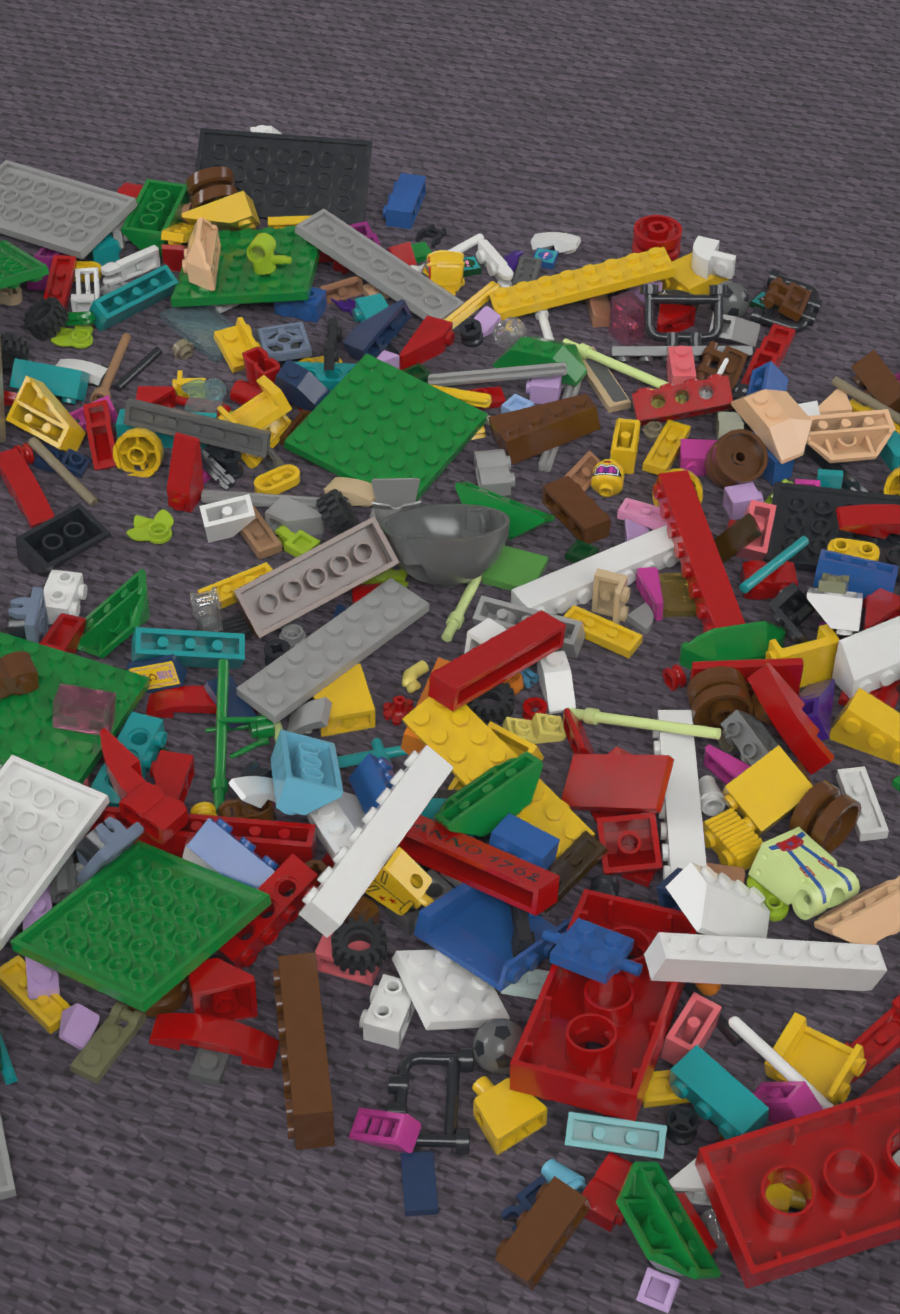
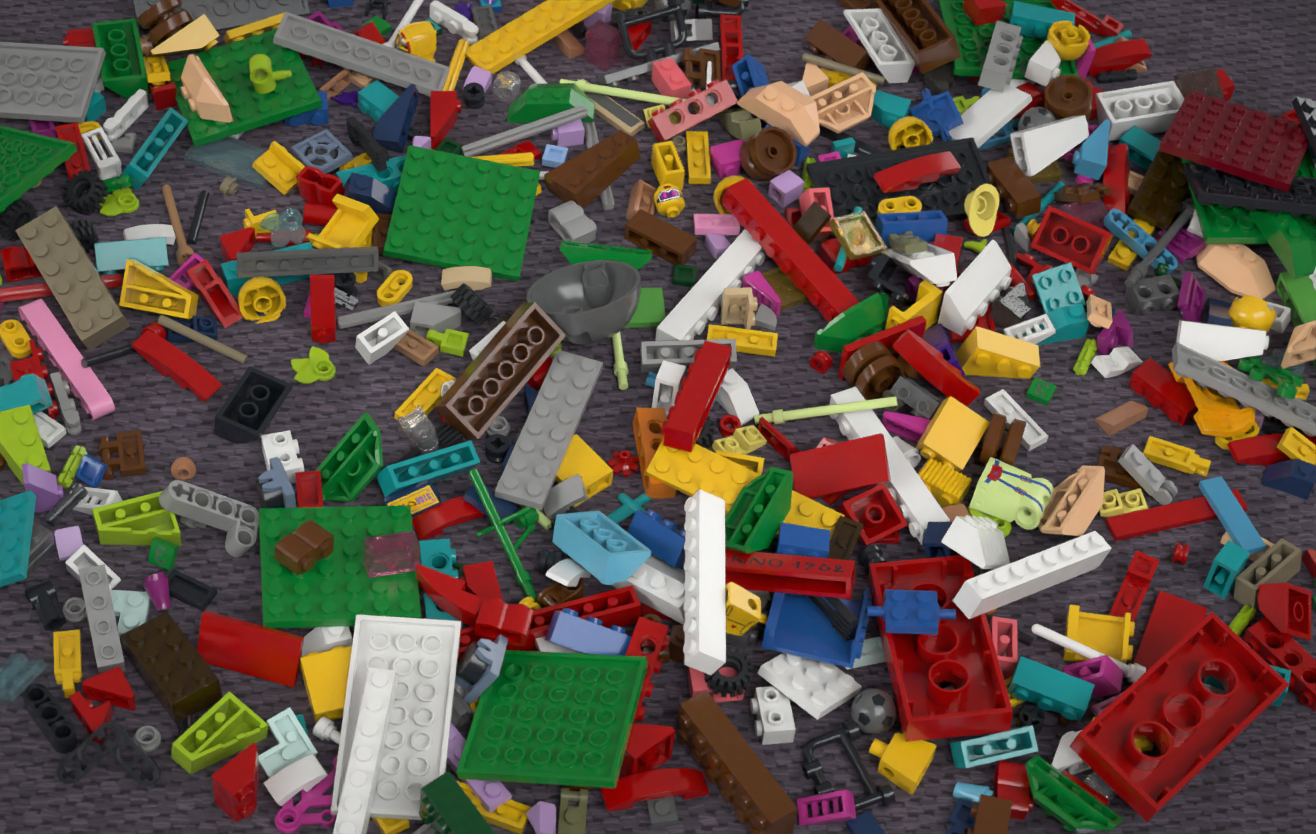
camera: 30 degrees left, 5 degrees up
(393, 496) = (511, 281): light grey piece -> none
(410, 676) = (616, 431): light yellow arm -> none
(781, 561) = (857, 235): none -> clear yellow plate

